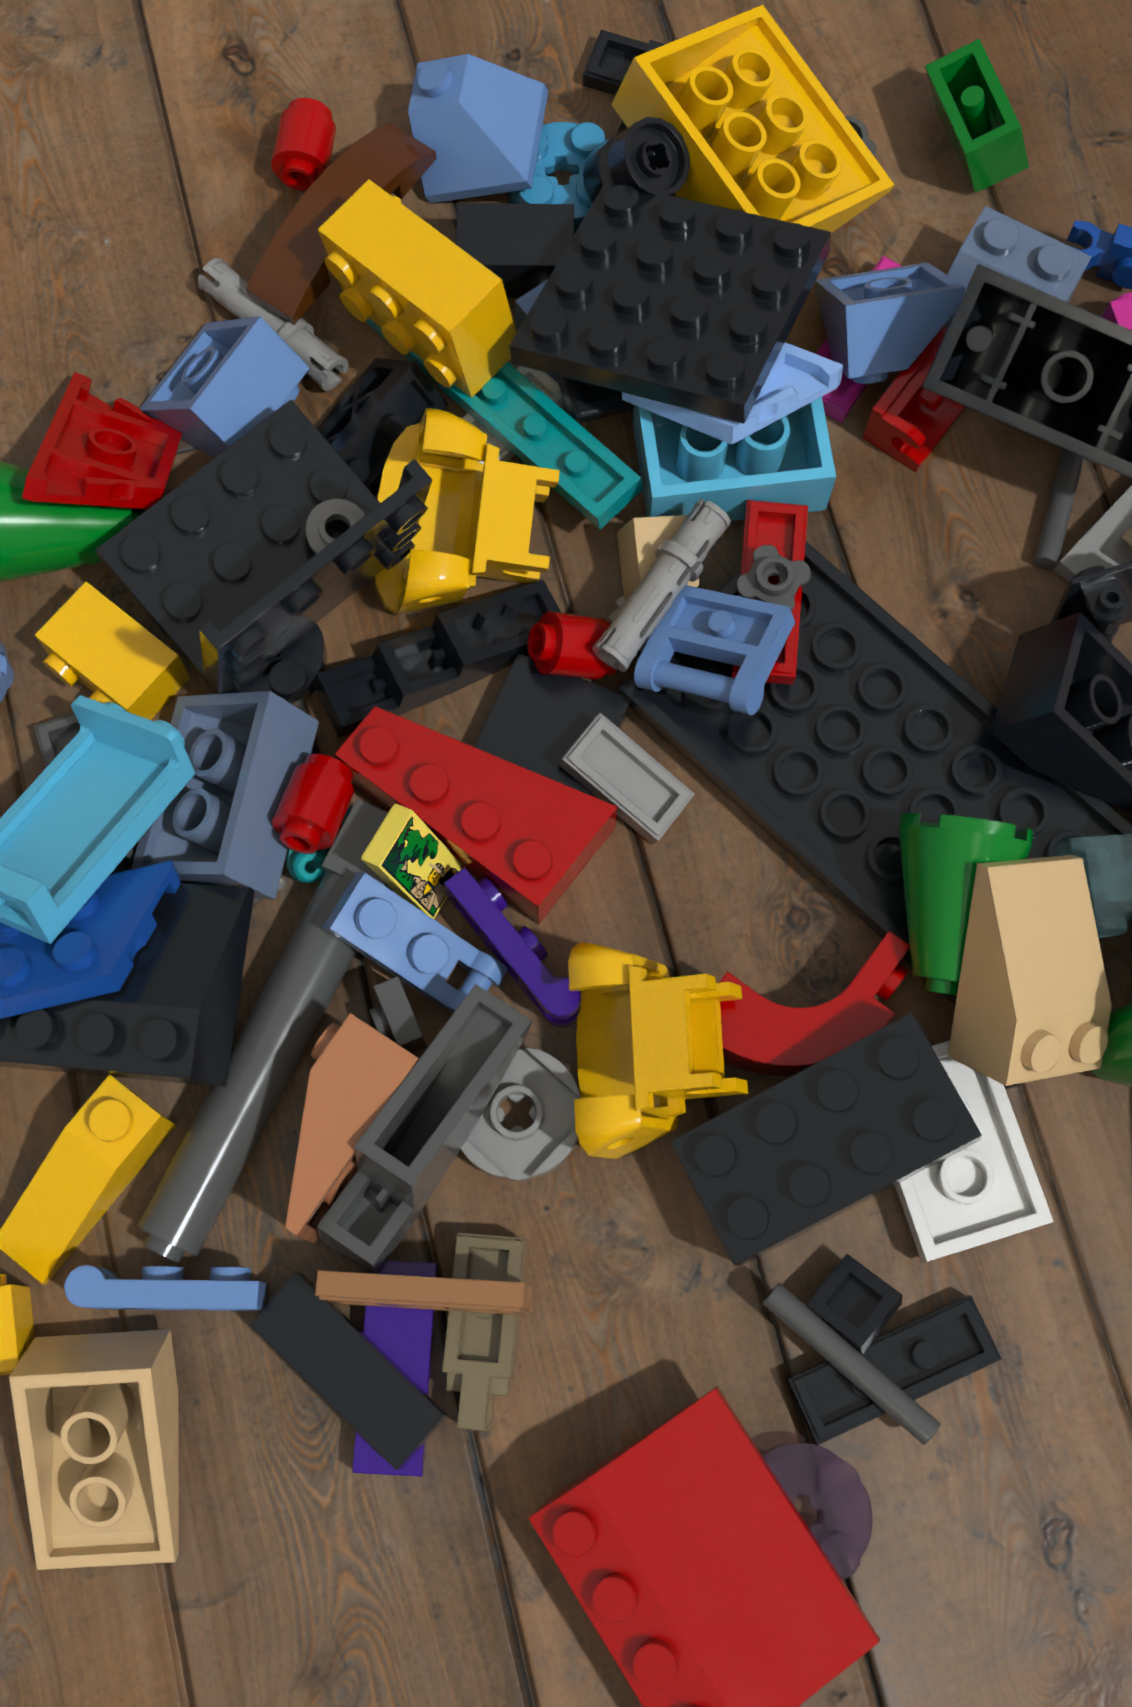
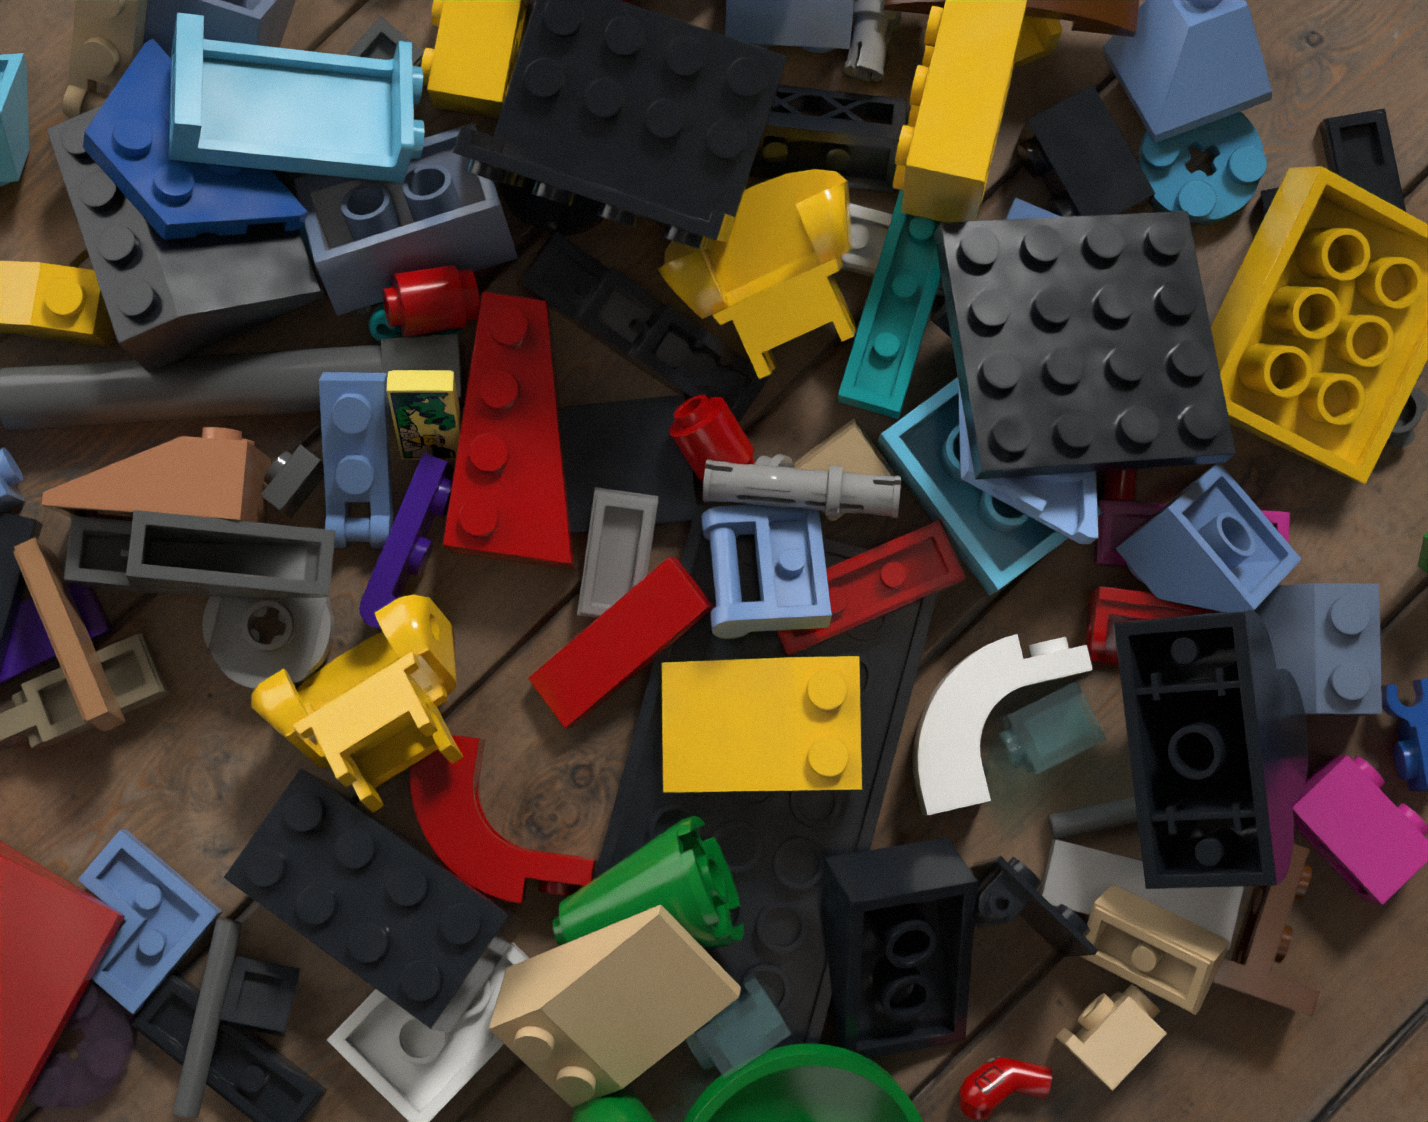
camera: 60 degrees right, 10 degrees up
(323, 514) = (703, 179): light grey plate -> none
(644, 156) = (1226, 232): black wheel -> none
(705, 812) = (621, 642): none -> red tile
(738, 1358) = (161, 916): none -> medium blue plate
(769, 563) = (849, 599): dark grey plate -> none
(846, 725) = (762, 724): none -> yellow slope
(913, 581) = (950, 727): none -> white arch
(966, 514) = (1050, 730): none -> clear light blue brick

